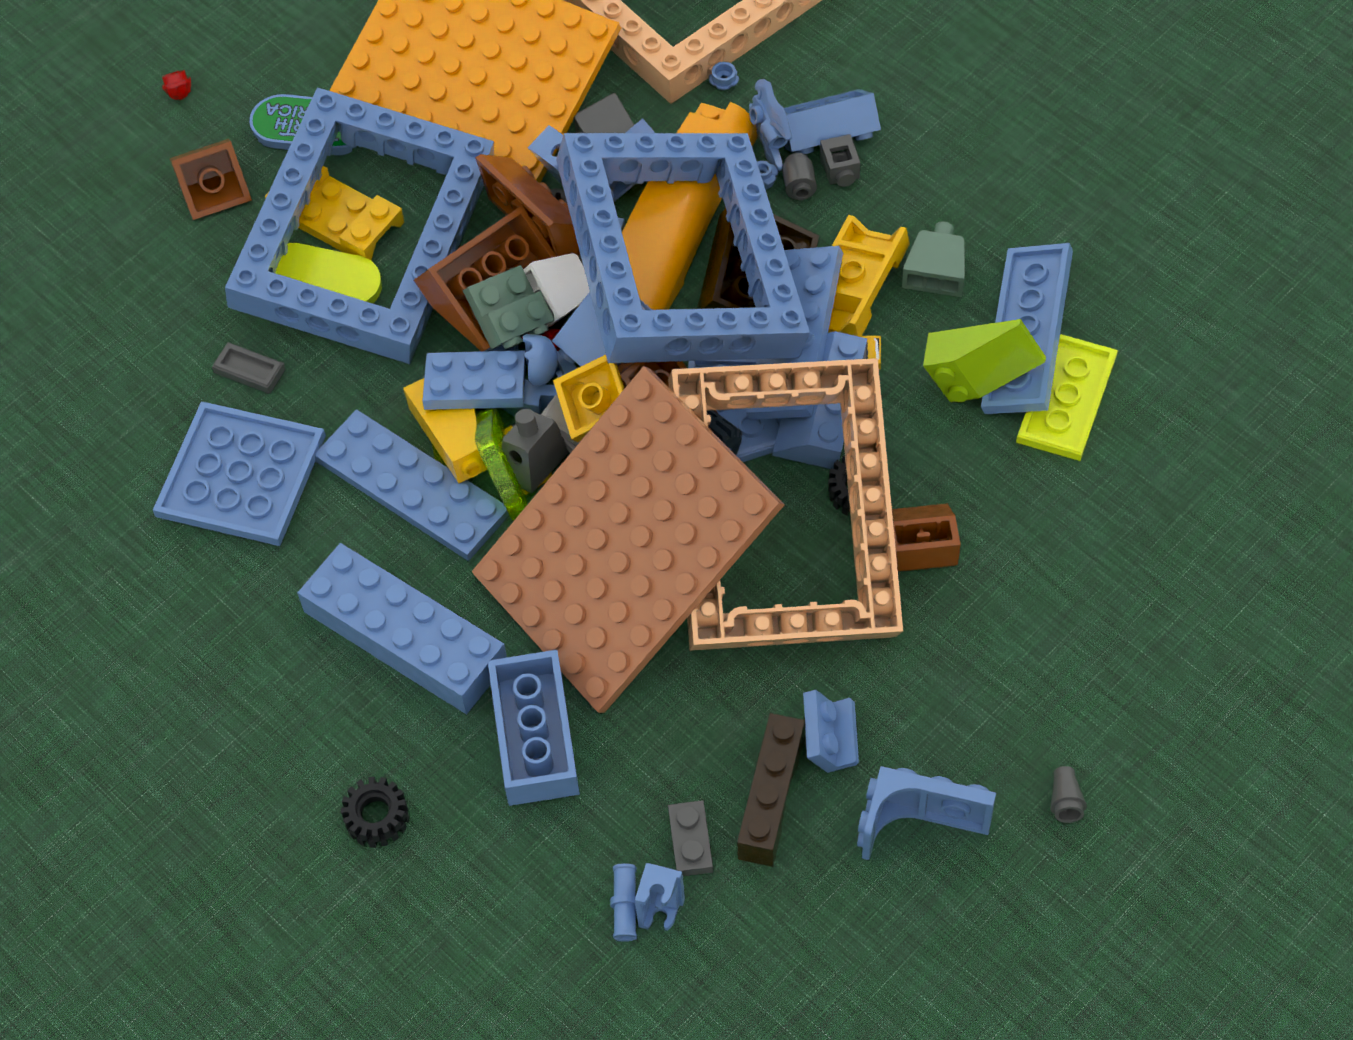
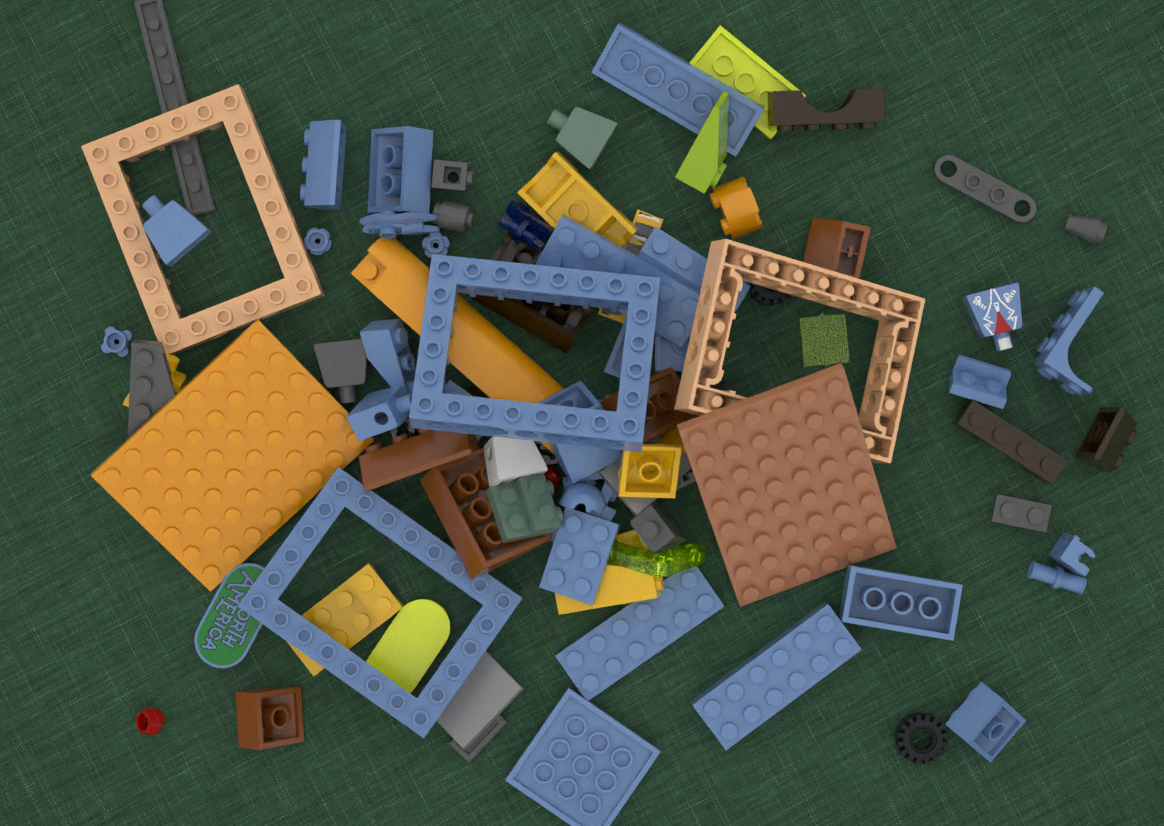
camera: 75 degrees left, 30 degrees up
(283, 350) = (479, 701): none -> light grey tile
(416, 877) = (985, 721): none -> medium blue slope
(805, 56) = (324, 165): none -> medium blue slope
(813, 564) = (824, 340): none -> clear neon green piece
(817, 229) = (525, 226): none -> clear blue hips
(817, 886) = (1107, 438): none -> dark brown slope
(921, 725) = (996, 313): none -> medium blue torso
(922, 428) = (737, 207): none -> light orange cylinder
(1062, 672) = (984, 189): none -> dark grey plate
(1093, 505) = (791, 108): none -> dark brown arch

